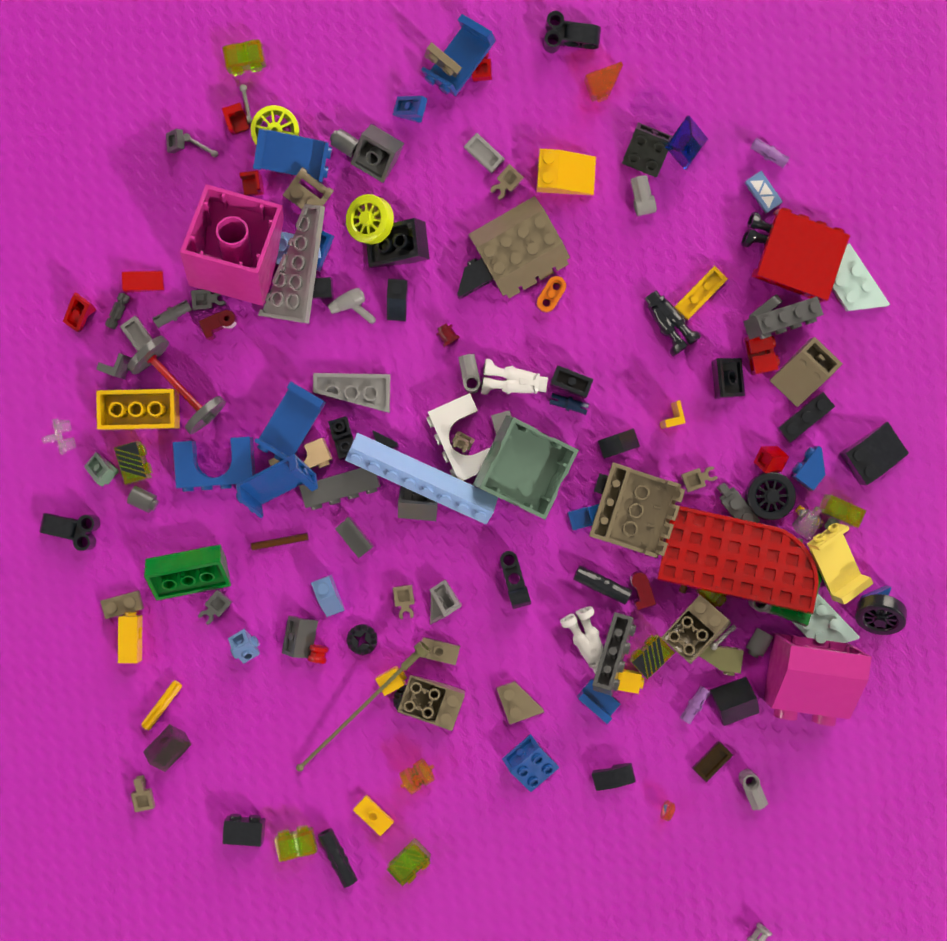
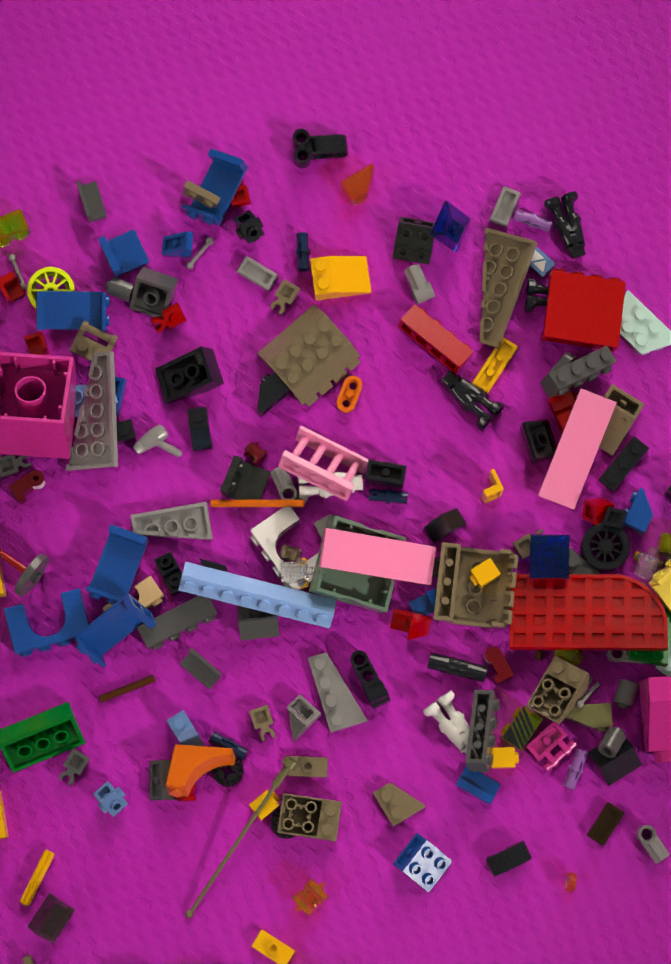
camera: 10 degrees left, 10 degrees down
(326, 629) = (191, 763): none -> orange arch
(332, 45) = (92, 201): none -> dark grey panel
(355, 105) = (124, 252): none -> blue bracket
(366, 616) = (224, 742): none -> dark blue pin
(372, 226) = (158, 356): neon yellow wheel -> none
(390, 180) = (171, 316): none -> red plate
(431, 362) = (244, 481): none -> pearl dark grey bracket
(439, 386) = (258, 503): none -> orange piece
(442, 111) = (209, 241): none -> light grey hinge
(464, 464) = (296, 572): none -> clear piece
(479, 591) = (337, 701): none -> light grey wing
(484, 103) = (248, 227): none -> black brick
(503, 372) = (317, 476): none -> bright pink fence
(533, 139) = (302, 252): none -> dark blue pin
(546, 465) = (377, 556): none -> bright pink tile
(567, 533) = (413, 623): none -> red slope
(647, 500) = (484, 573): none -> yellow brick
(648, 255) = (435, 339): none -> brick
(674, 672) = (546, 741): none -> dark pink plate
(715, 497) = (549, 556): none -> clear blue slope
(728, 204) = (503, 276): none -> dark tan wing
(737, 689) = (612, 742): none -> dark grey brick
(744, 133) = (505, 206): none -> light grey tile
(765, 394) = (577, 448): none -> bright pink tile
(787, 472) = (615, 518): none -> black plate
(804, 168) = (570, 228): none -> black piece

